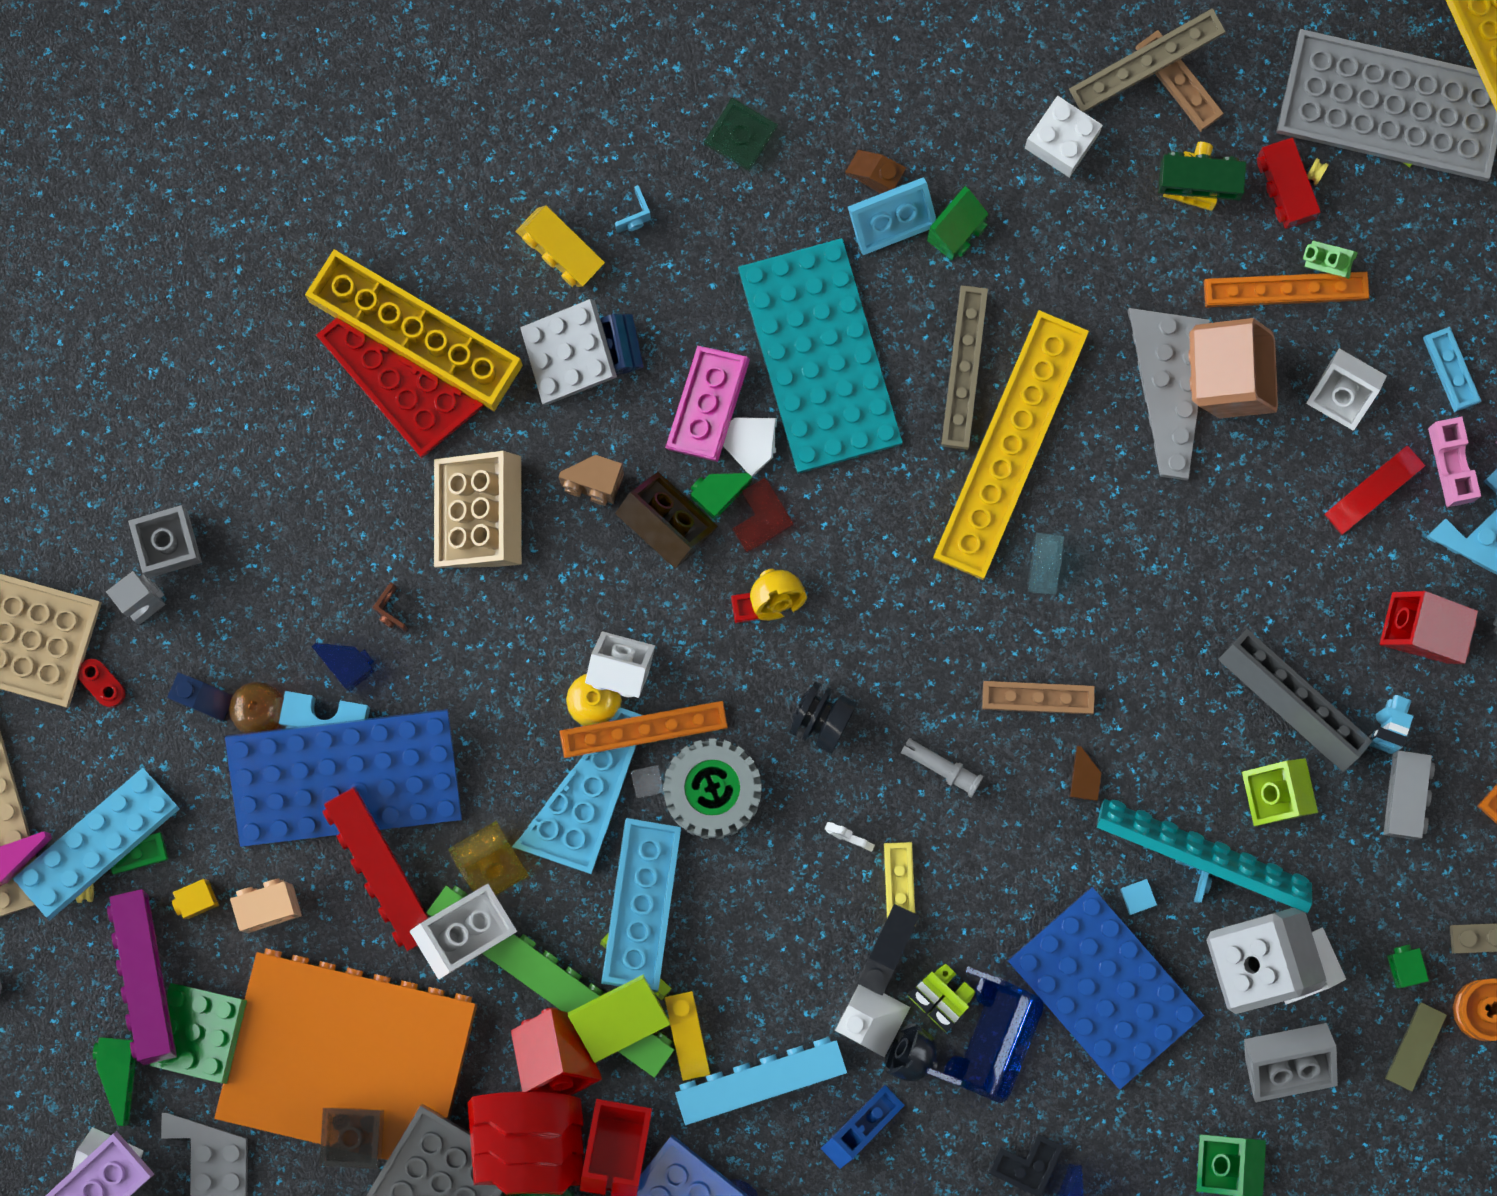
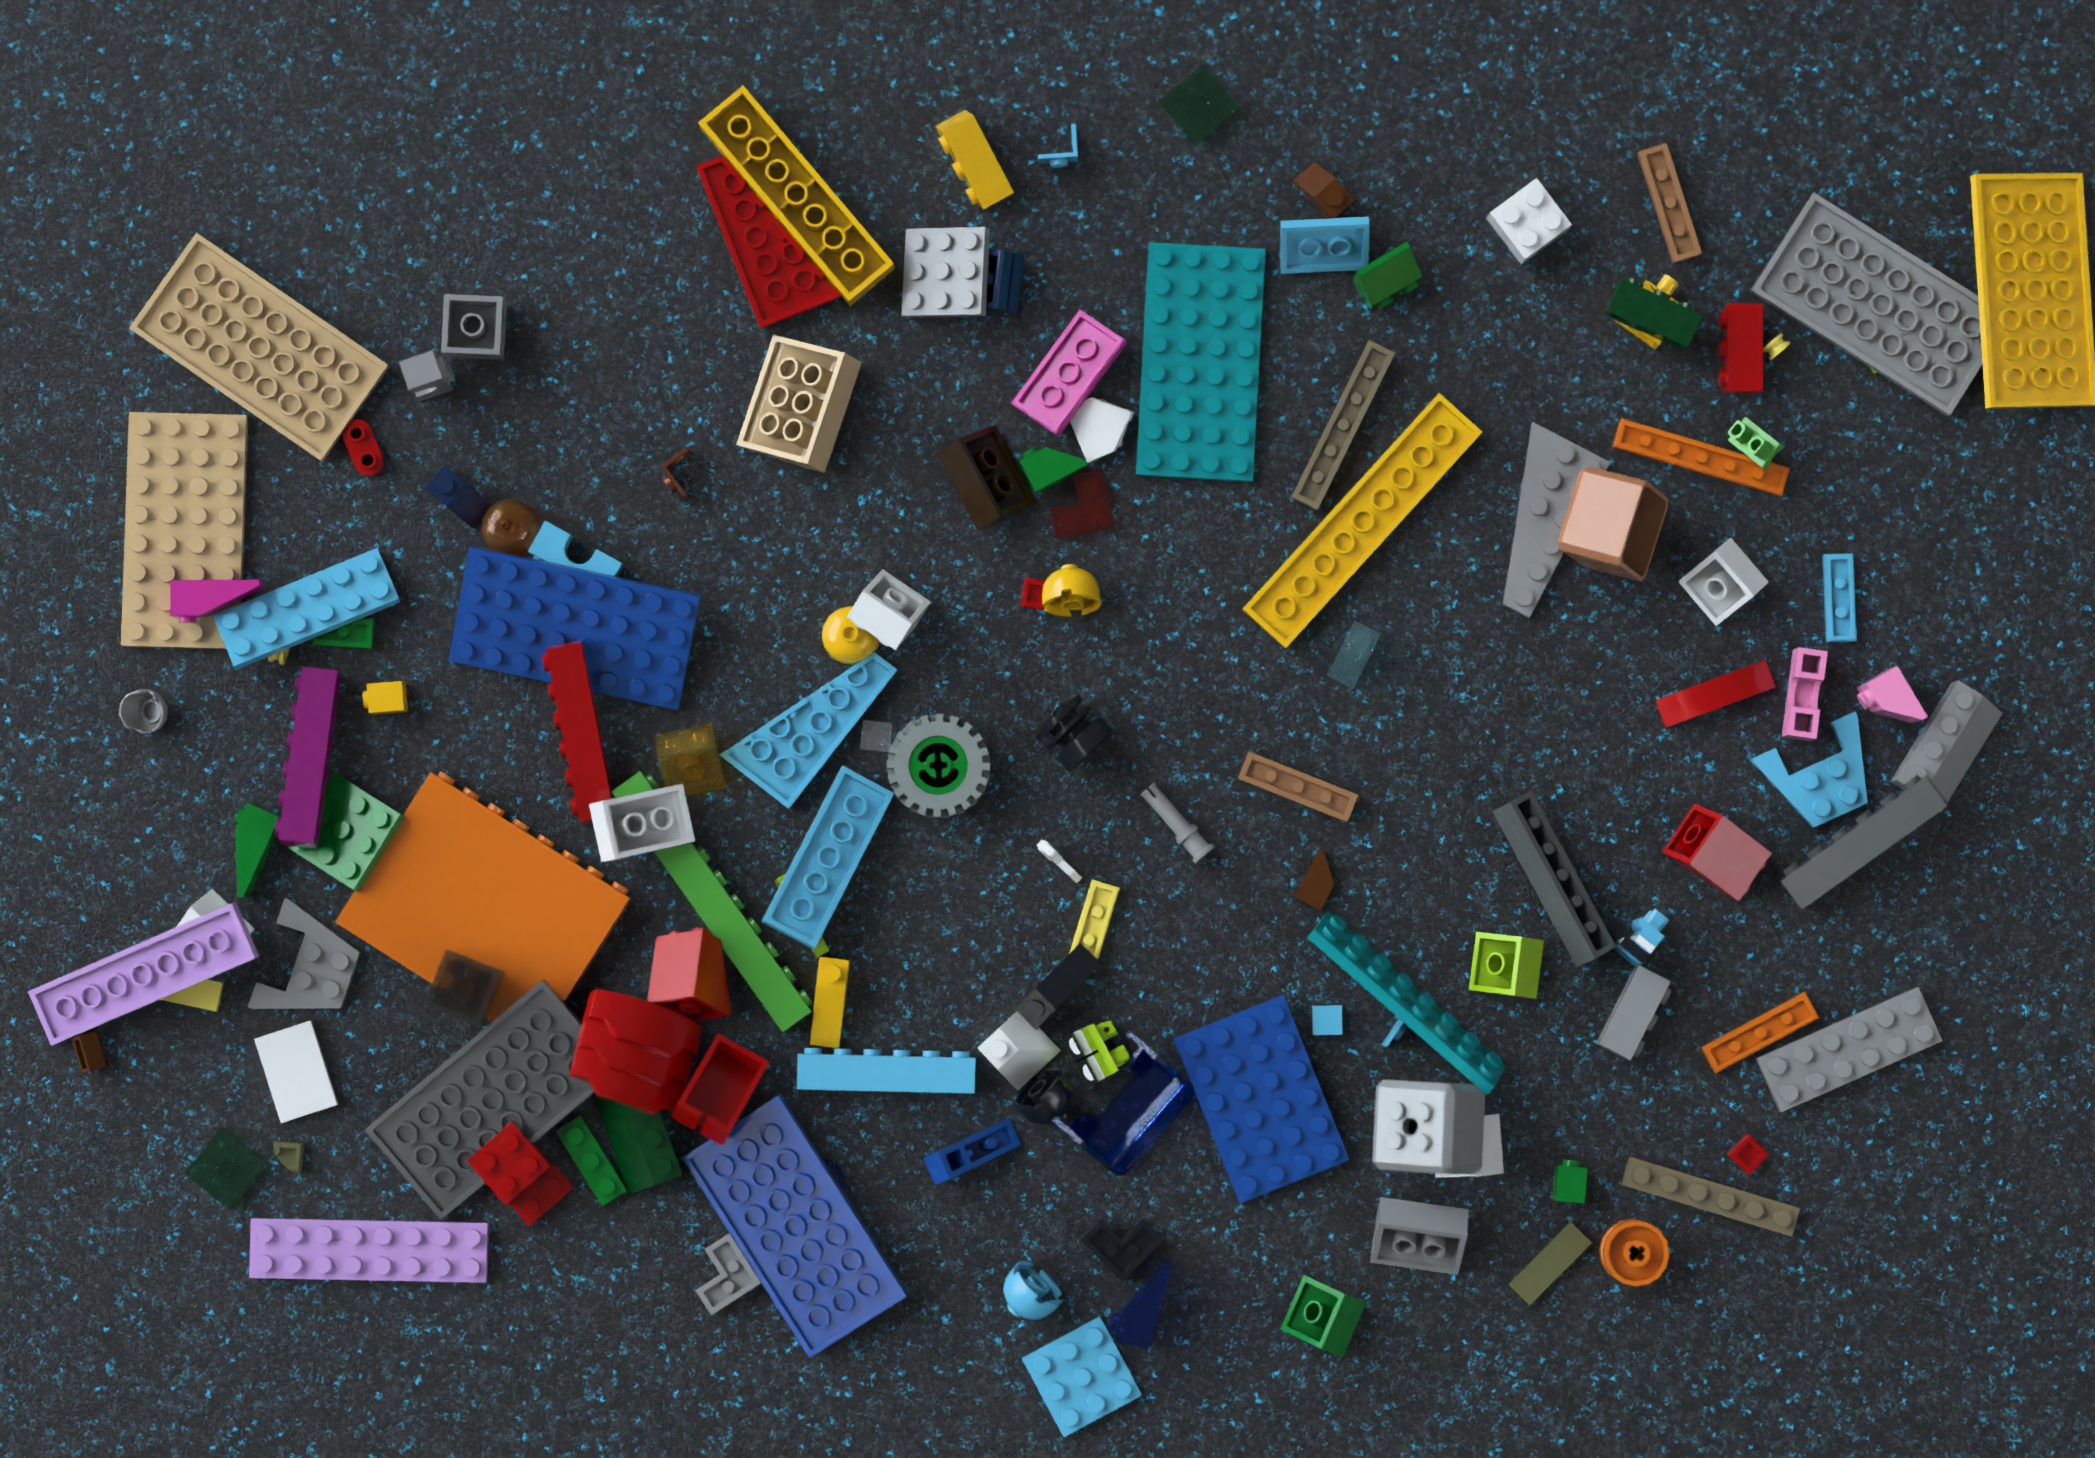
camera: 15 degrees right, 5 degrees up
(265, 906) = (454, 730): light nougat brick -> none
(346, 663) = (615, 513): clear blue slope -> none
(595, 478) = (928, 410): medium nougat slope -> none
(619, 1018) = (766, 962): lime tile -> none
(643, 729) = (890, 682): orange tile -> none
(1147, 61) = (1642, 172): dark tan plate -> none

